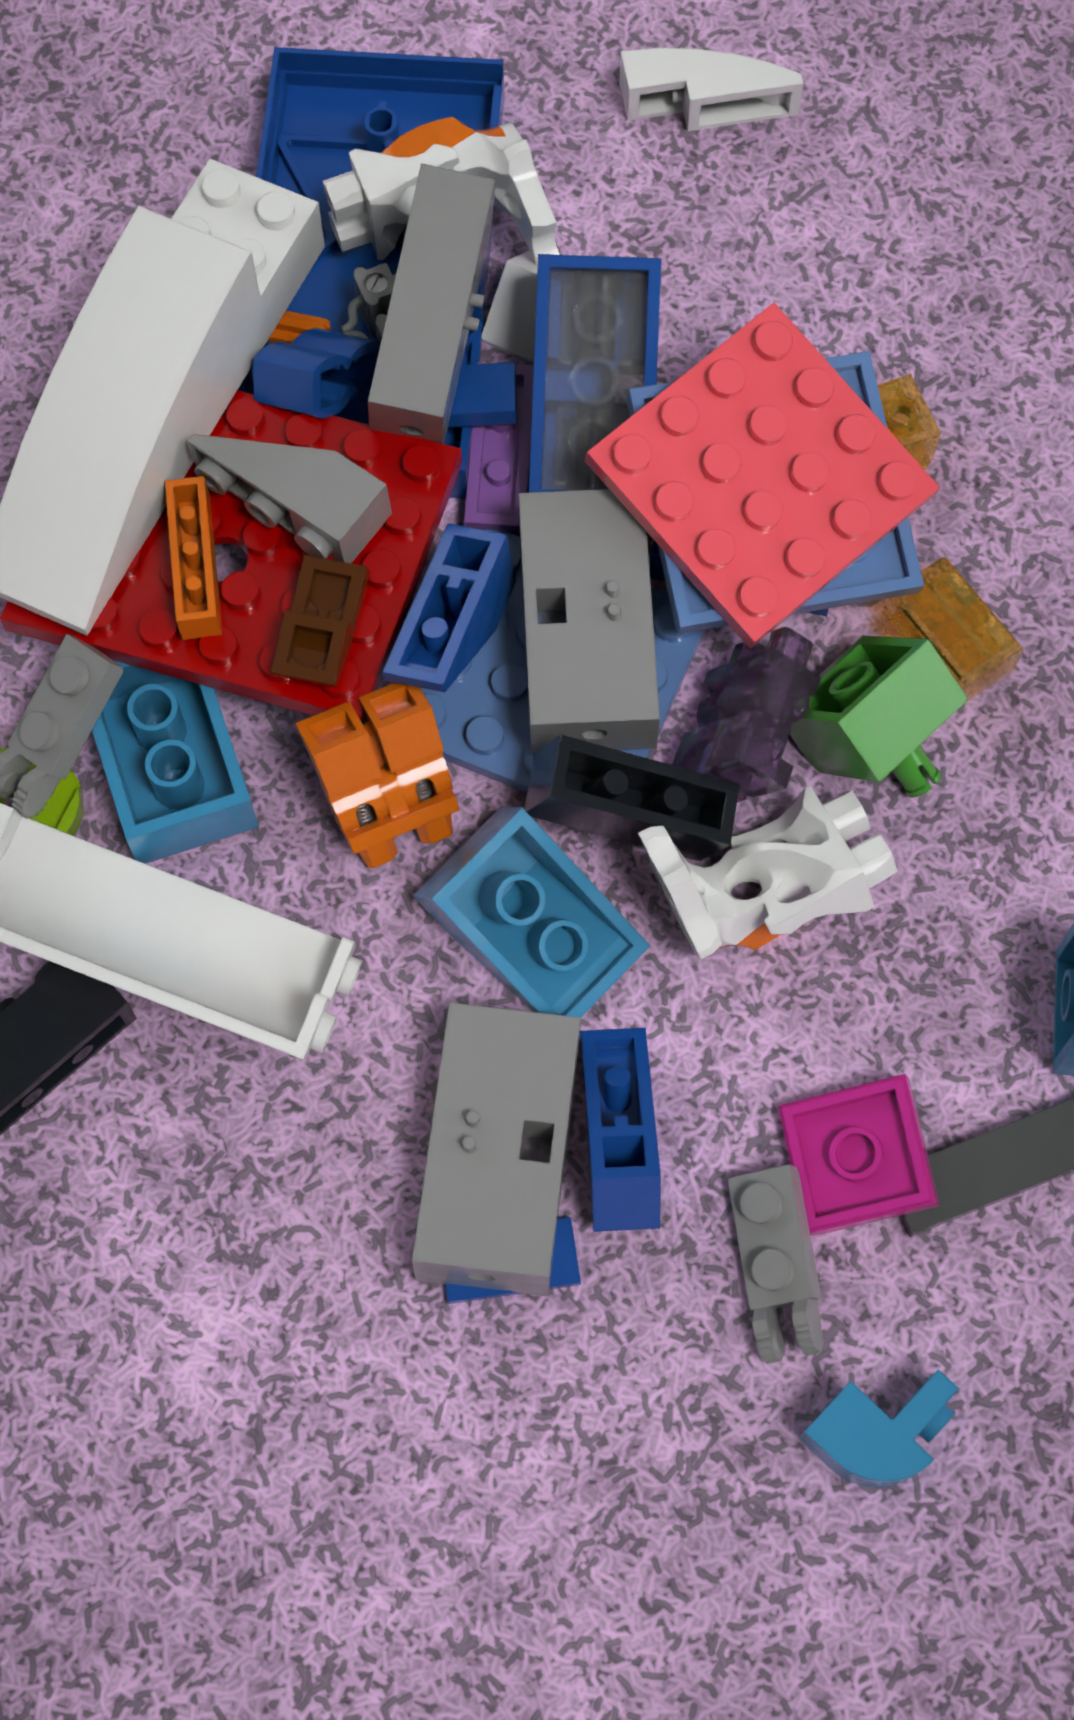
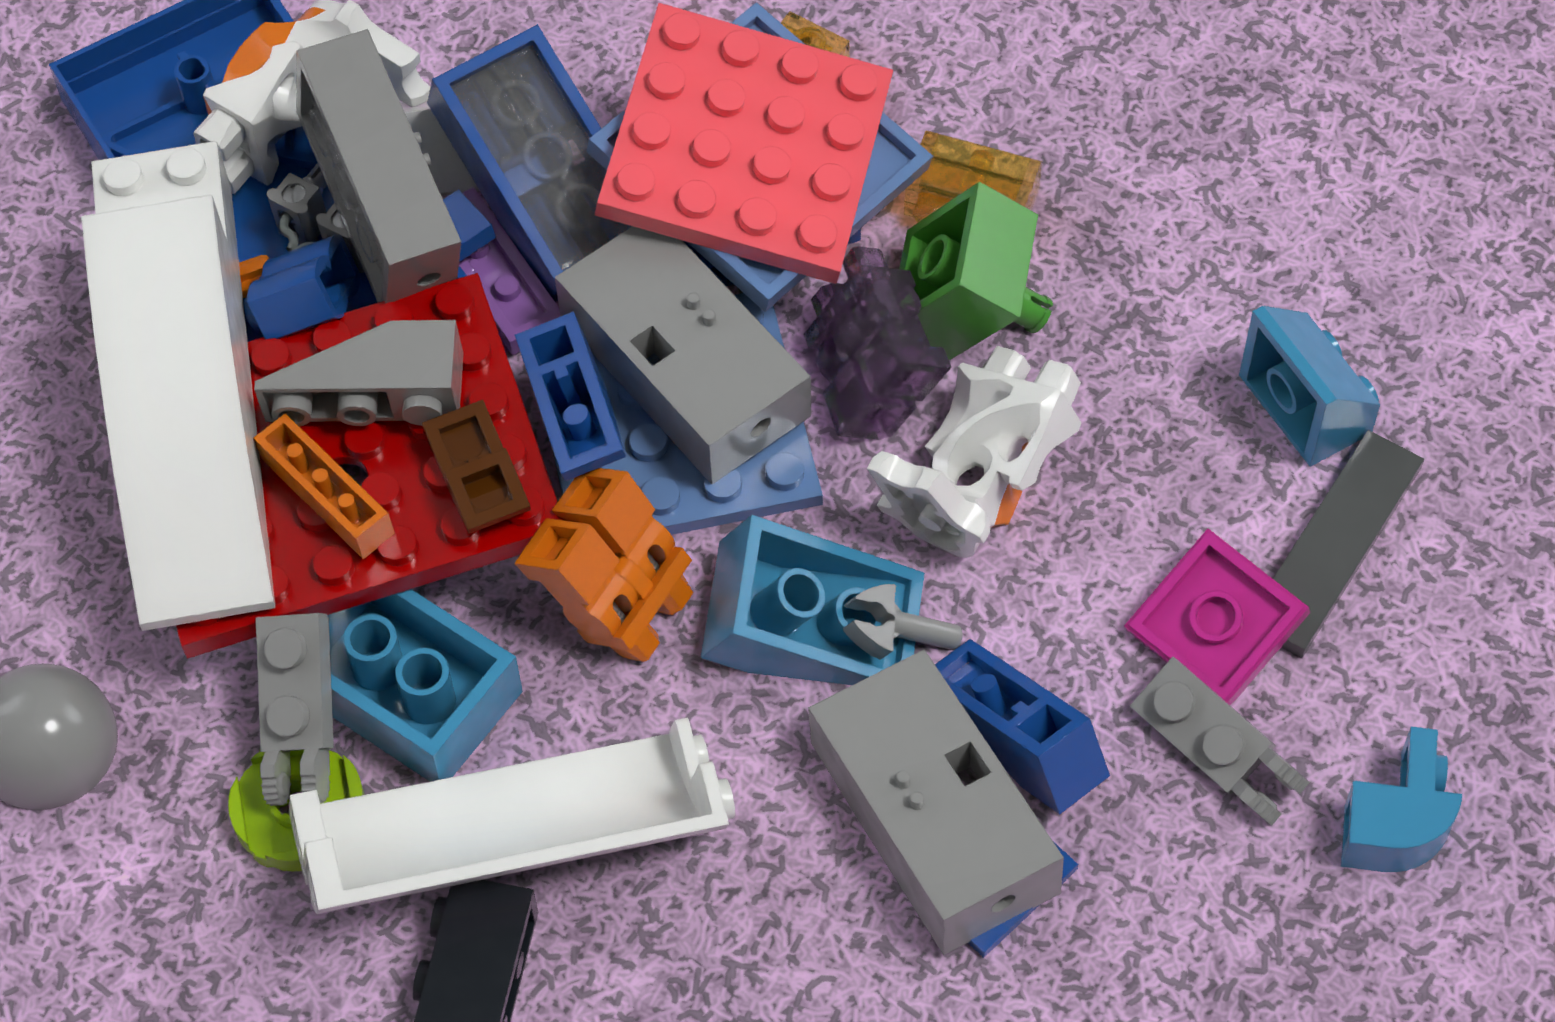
camera: 35 degrees left, 10 degrees down
(588, 978) = (895, 623): none -> light grey bar
(626, 793) = (824, 456): black brick -> none

